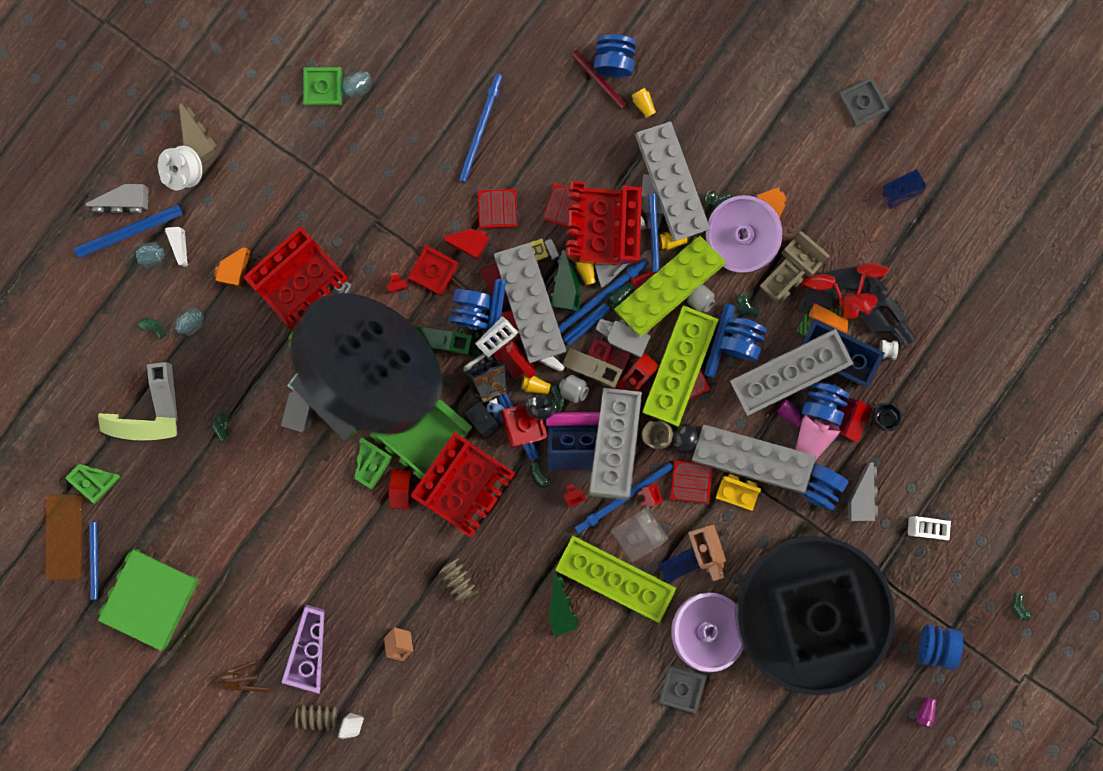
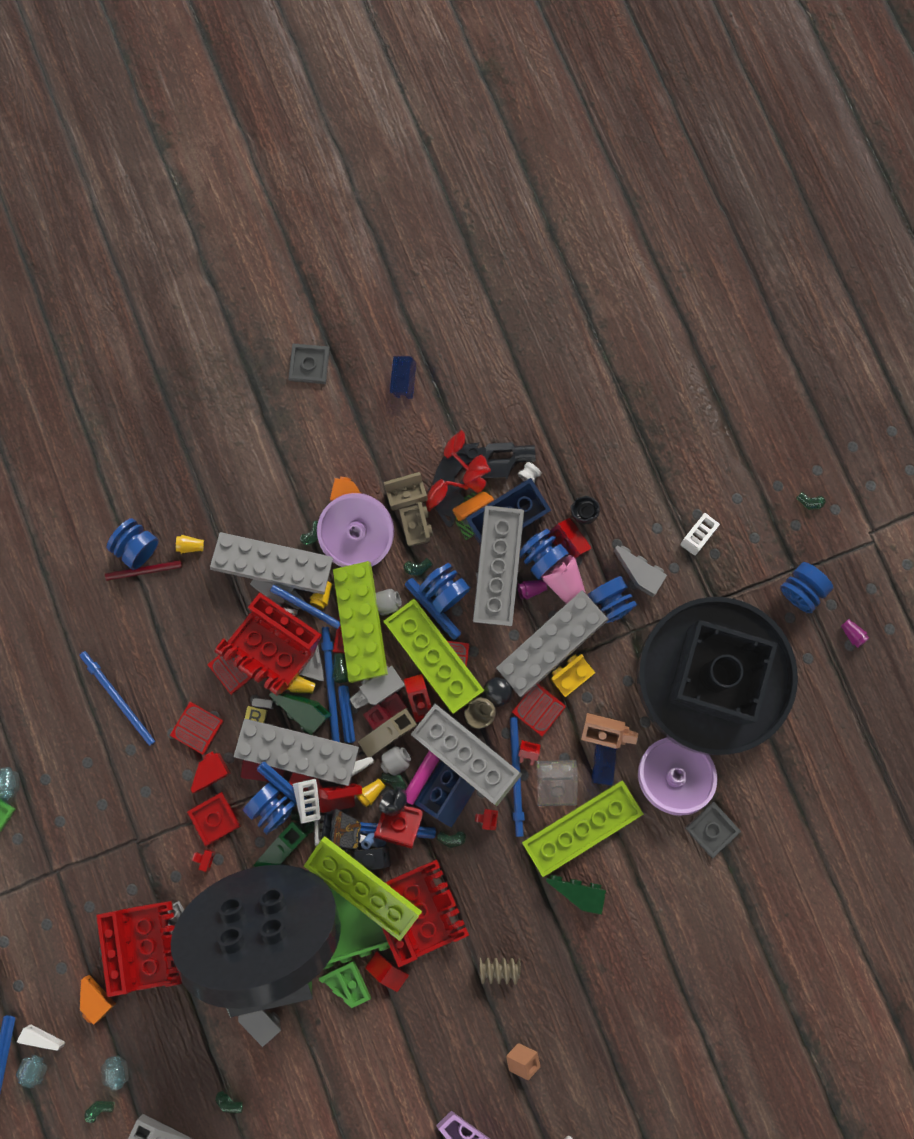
camera: 60 degrees left, 5 degrees down
(454, 426) = (362, 888): none -> lime plate

